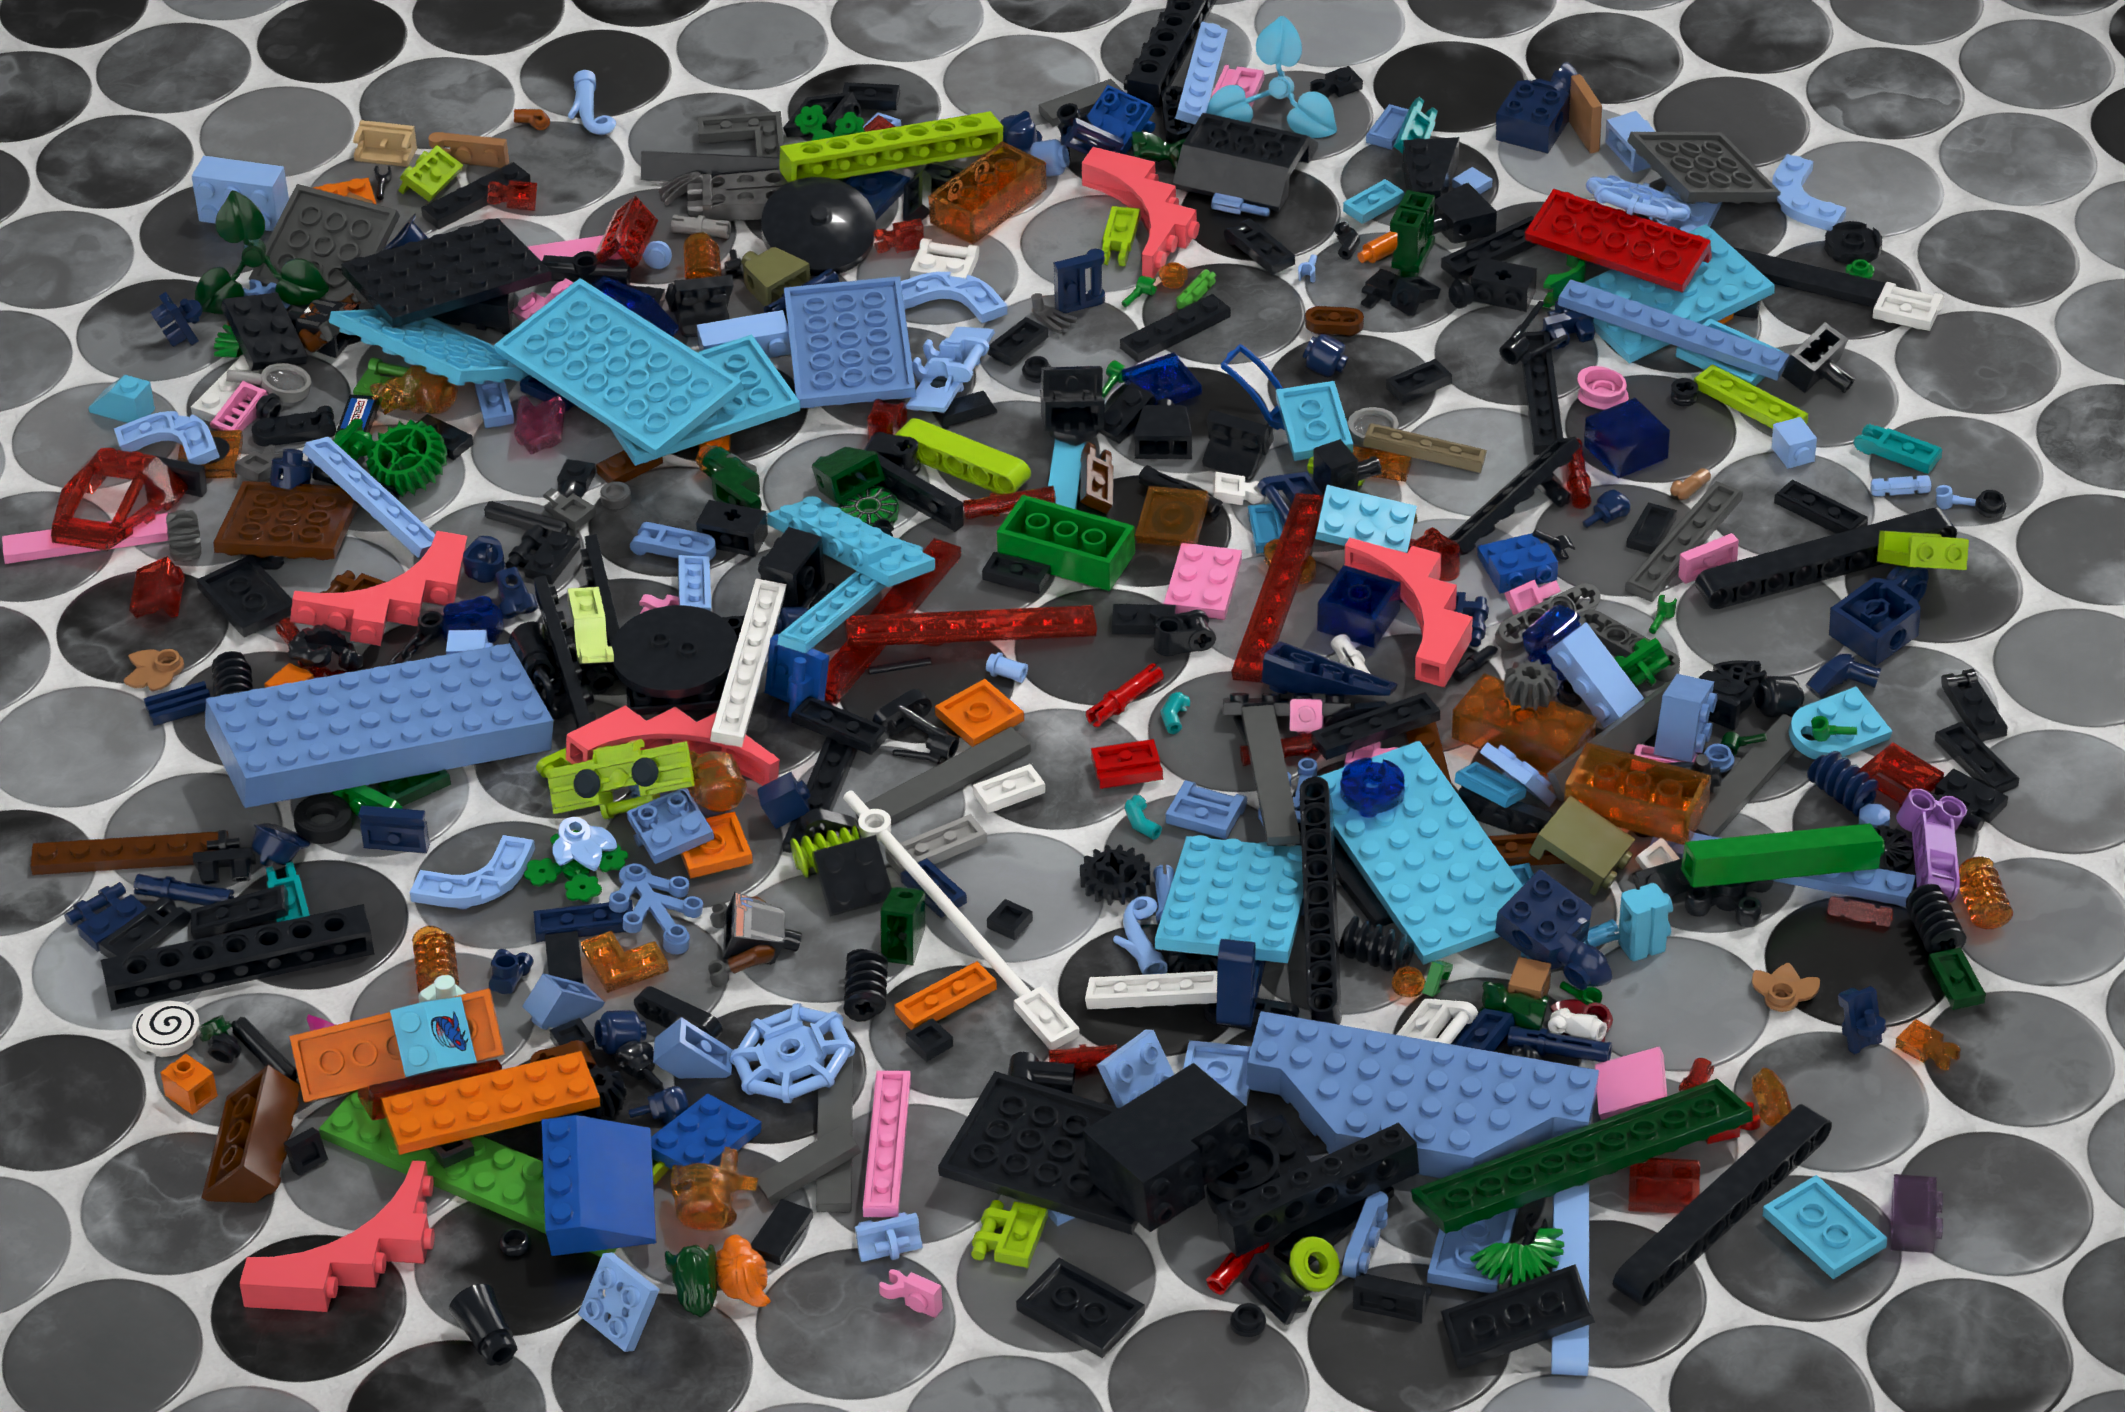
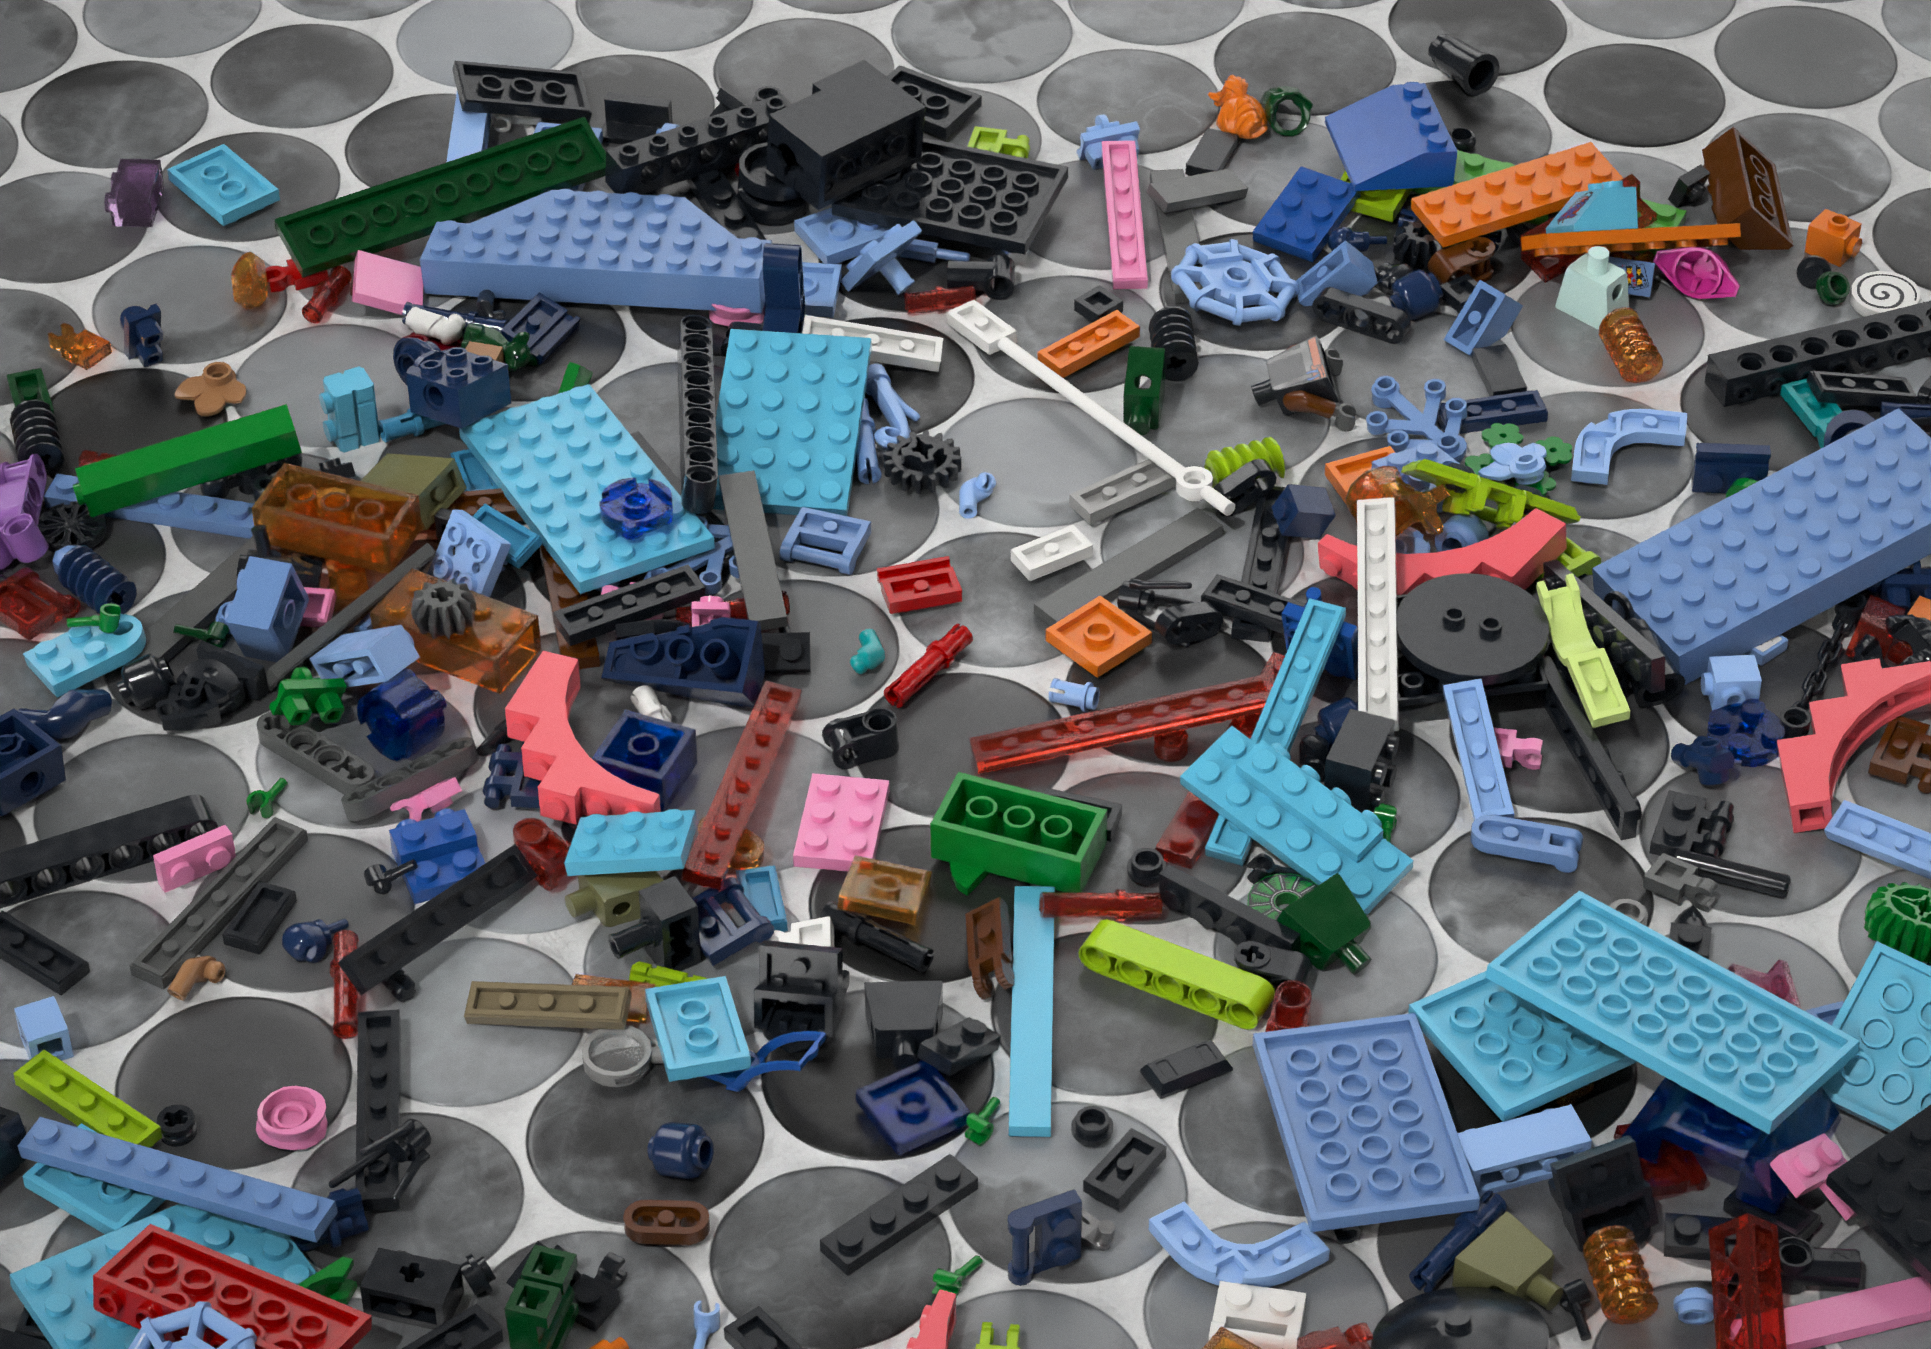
camera: 175 degrees right, 0 degrees up
(262, 1048) = (1774, 279): black axle -> none
(312, 1277) = (1632, 96): coral arch -> none
(480, 562) = (1757, 795): dark blue piece -> none
(508, 970) = (1552, 350): dark blue plate -> none
(621, 968) = (1439, 359): clear orange plate -> none
(627, 1300) = (1341, 70): light blue plate -> none
(712, 1190) = (1282, 153): clear orange piece -> none
(732, 478) = (1467, 916): dark green plate -> none
(734, 527) = (1456, 856): black brick -> none
(852, 875) = (1214, 435): black plate -> none
(919, 1292) = (1071, 102): bright pink plate -> none
(948, 368) = (1225, 1114): light blue piece -> none
(949, 888) = (1111, 447): dark blue plate -> none
(969, 536) = (1145, 866): none -> black plate
(1009, 919) = (1032, 418): black plate -> none
(1067, 857) = (974, 492): none -> light blue arm
(1072, 402) = (1035, 1025): black piece -> none
(1137, 819) = (901, 529): teal arm -> none
(1138, 617) = (914, 769): black plate -> none
(1173, 275) = (906, 1306): clear orange plate -> none
(1196, 289) = (872, 1279): bright green axle -> none
(1375, 947) = (639, 398): black piece -> none
(1408, 982) = (606, 377): clear orange plate -> none
(1419, 381) = (549, 1121): black plate -> none
(1434, 1015) = (590, 331): white plate -> none
(1521, 1259) = (510, 126): green hair -> none
(1626, 438) = (271, 1025): clear blue brick -> none
(1721, 1205) = (344, 174): black beam -> none

